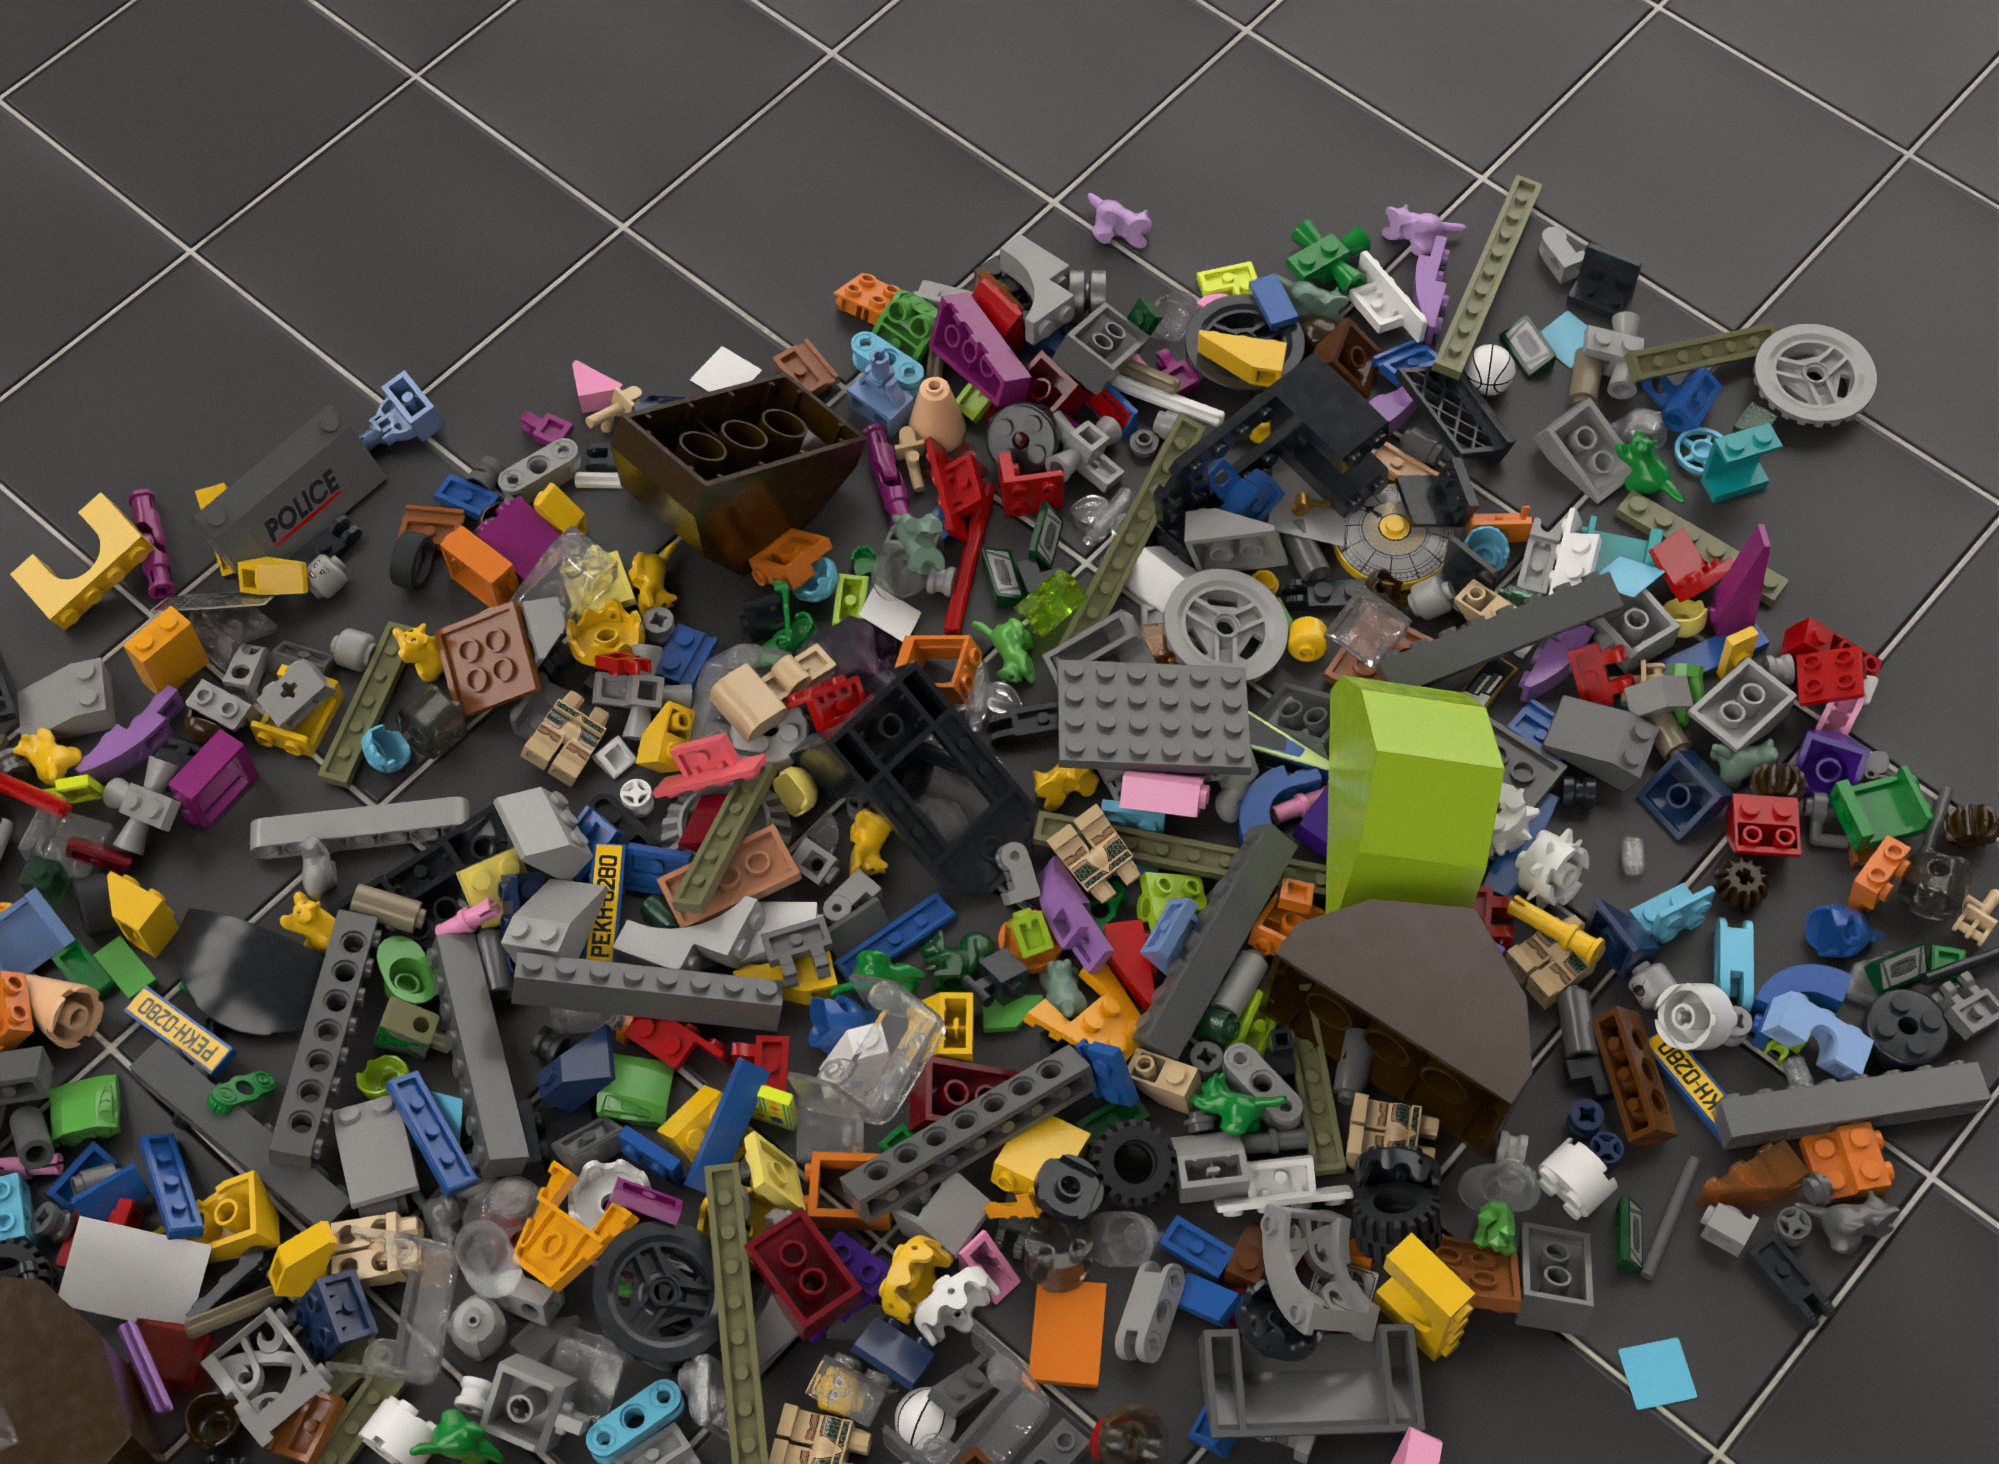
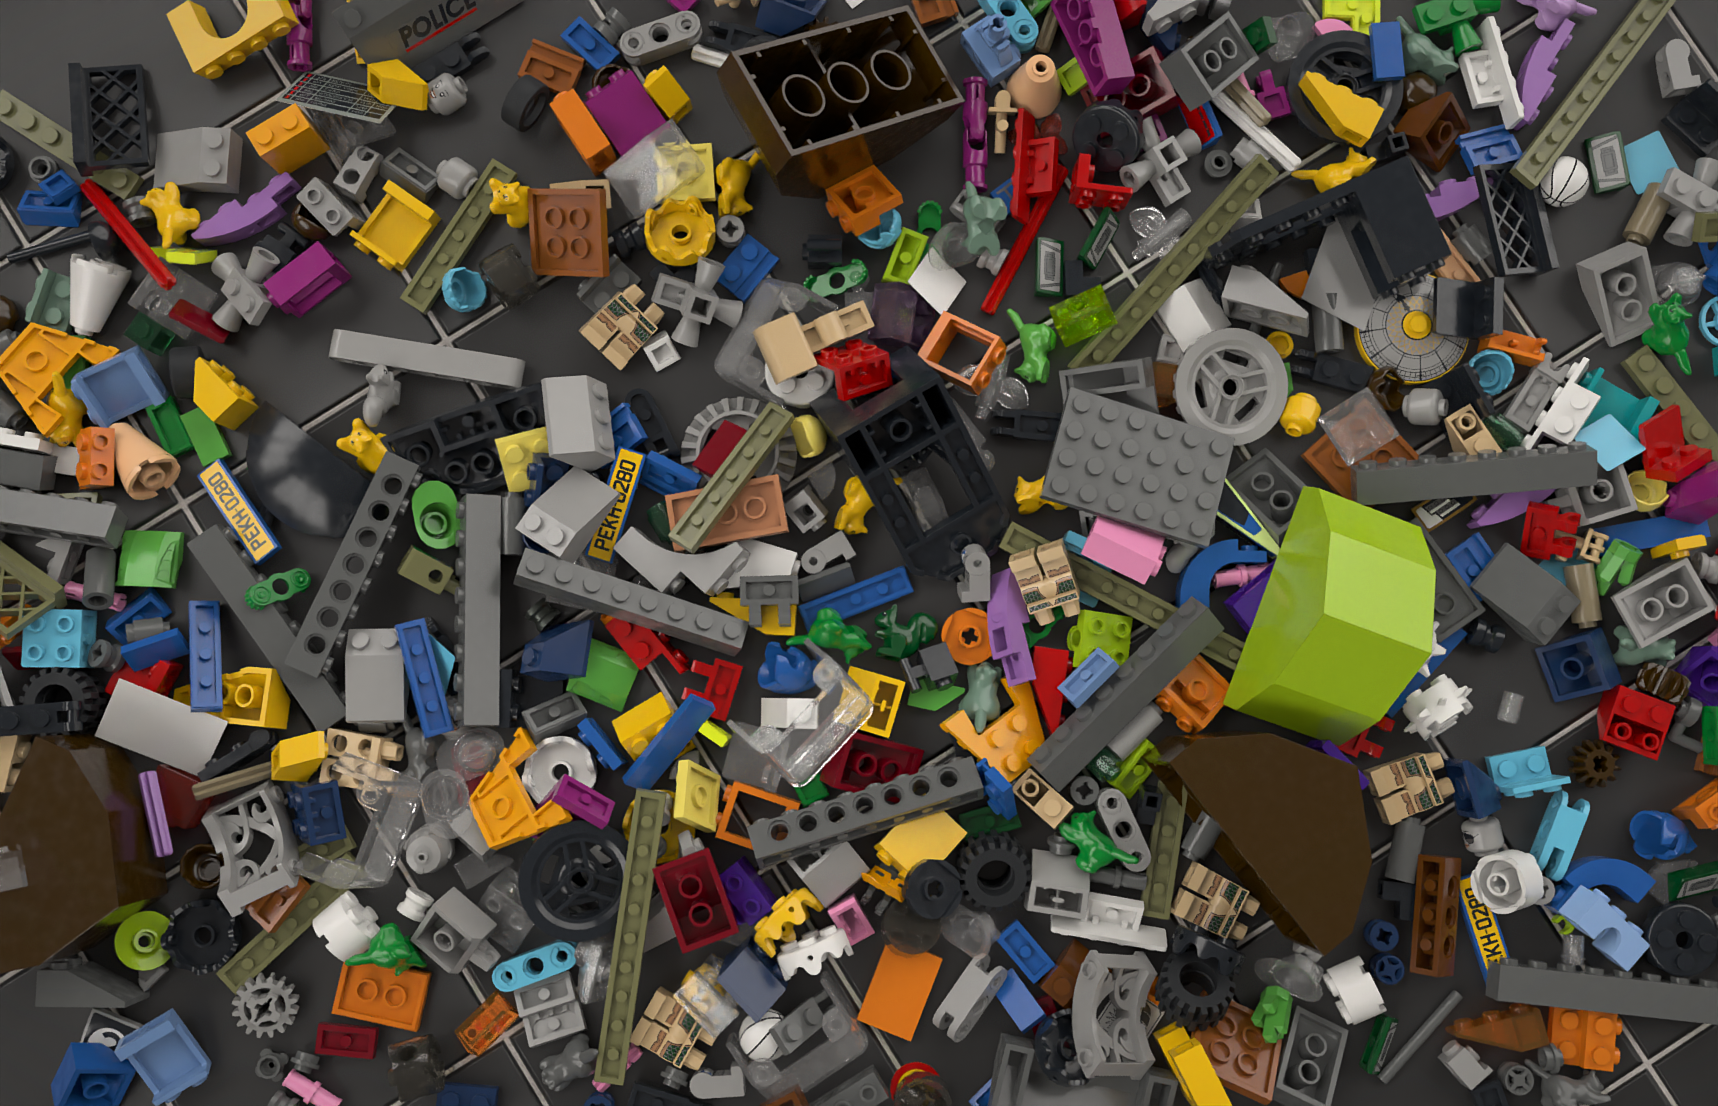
camera: 15 degrees right, 25 degrees up
(310, 689) = (385, 228): light grey brick -> none
(378, 1072) = (398, 605): lime hair -> none
(389, 908) = (430, 455): dark tan brick -> none
(469, 918) = (497, 484): bright pink pin -> none
(543, 623) = (624, 216): light grey slope -> none
(620, 663) = (684, 274): red plate -> none
(632, 792) = (670, 394): white wheel -> none
(666, 730) = (707, 356): yellow slope -> none
(707, 763) = (735, 400): coral bracket -> none
(785, 641) = (845, 235): green piece -> none
(1030, 932) = (970, 635): lime bracket -> none
(1245, 497) = (1292, 260): blue piece -> none
(1295, 895) = (1207, 668): orange plate -> none
(1302, 504) = (1341, 278): pearl gold hand -> none
(1569, 936) = (1428, 781): yellow pin -> none
(1659, 696) = (1591, 574): light grey slope -> none

